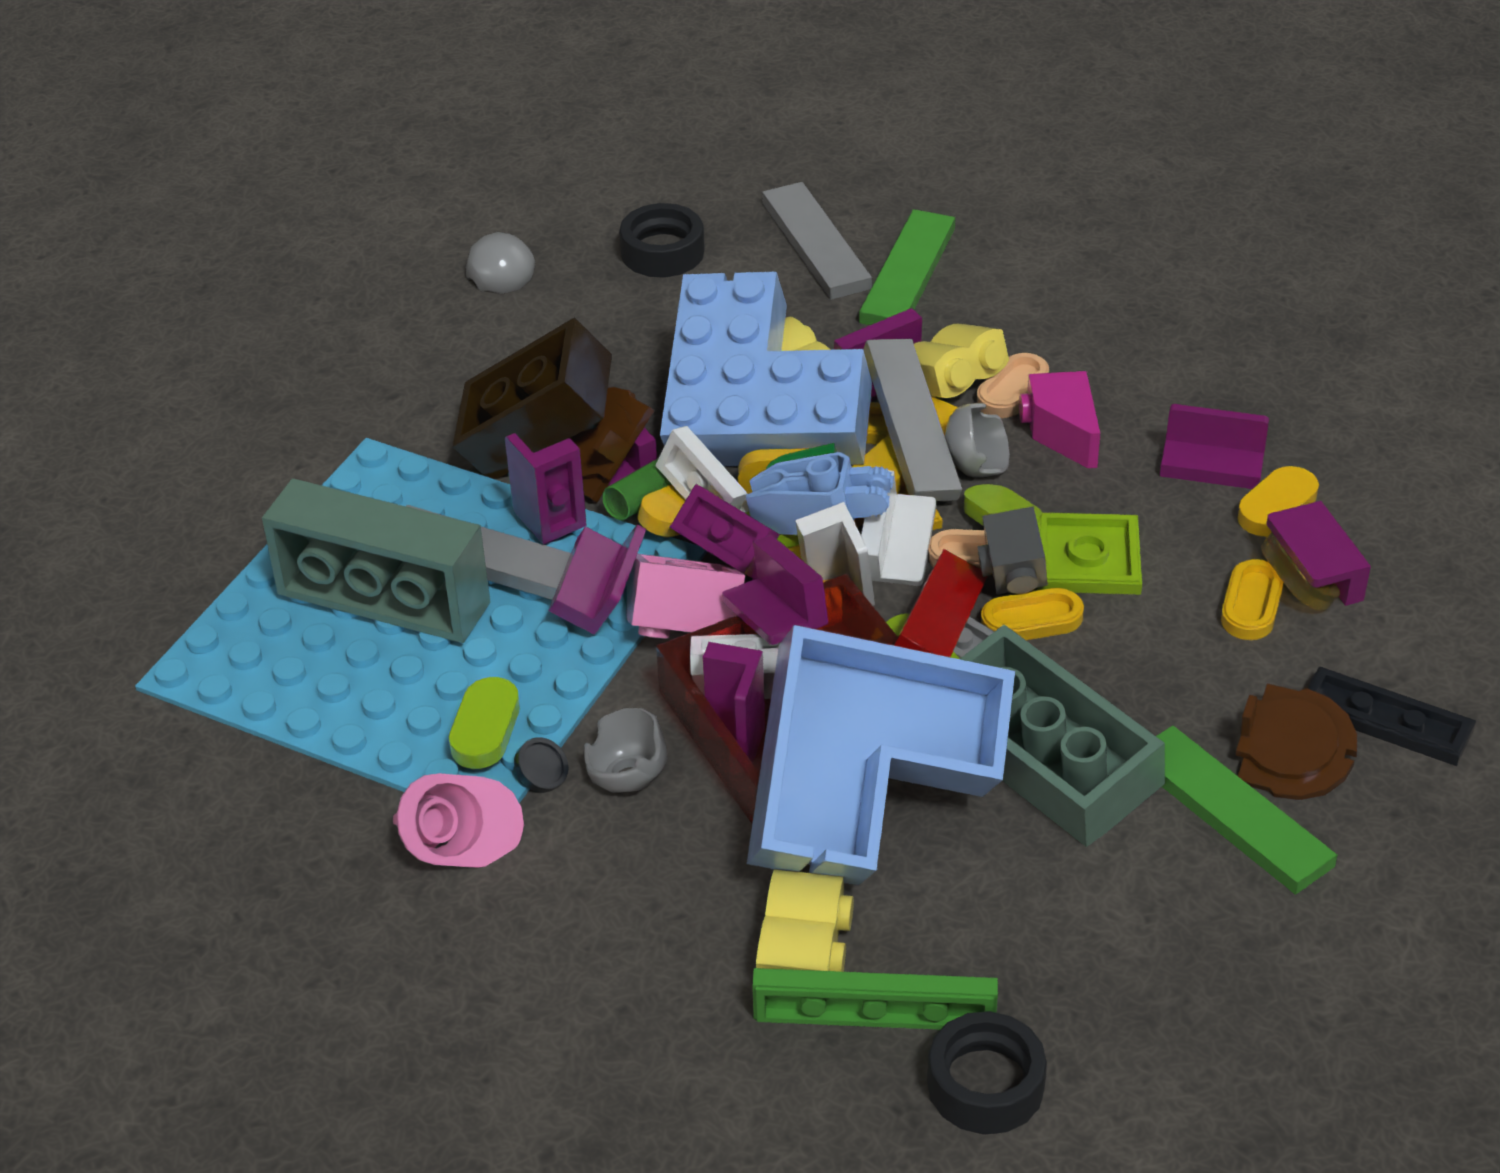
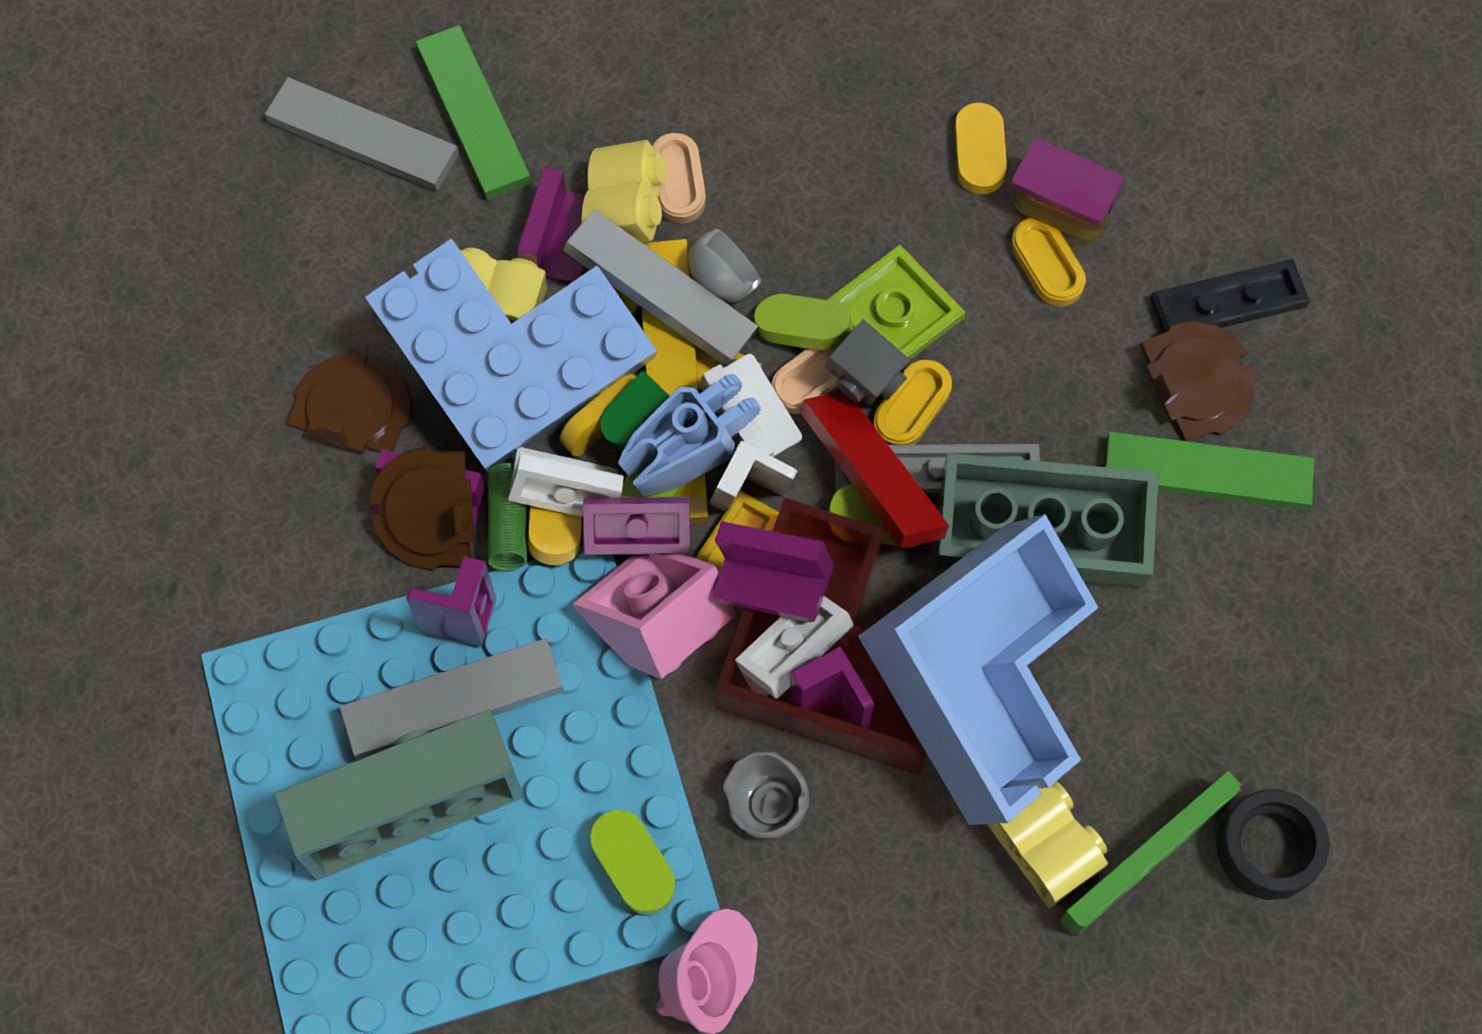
camera: 45 degrees left, 25 degrees up
(500, 263) = (114, 372): light grey hair -> none
(538, 393) = (348, 520): dark brown brick -> none
(541, 765) = (707, 858): black piece -> none
(595, 578) = (585, 652): magenta panel -> none
(639, 368) = (352, 404): none -> reddish brown piece
(662, 259) = (243, 268): black tyre -> none
(1062, 415) = (758, 185): dark pink slope -> none
(1214, 446) = (896, 135): magenta panel -> none

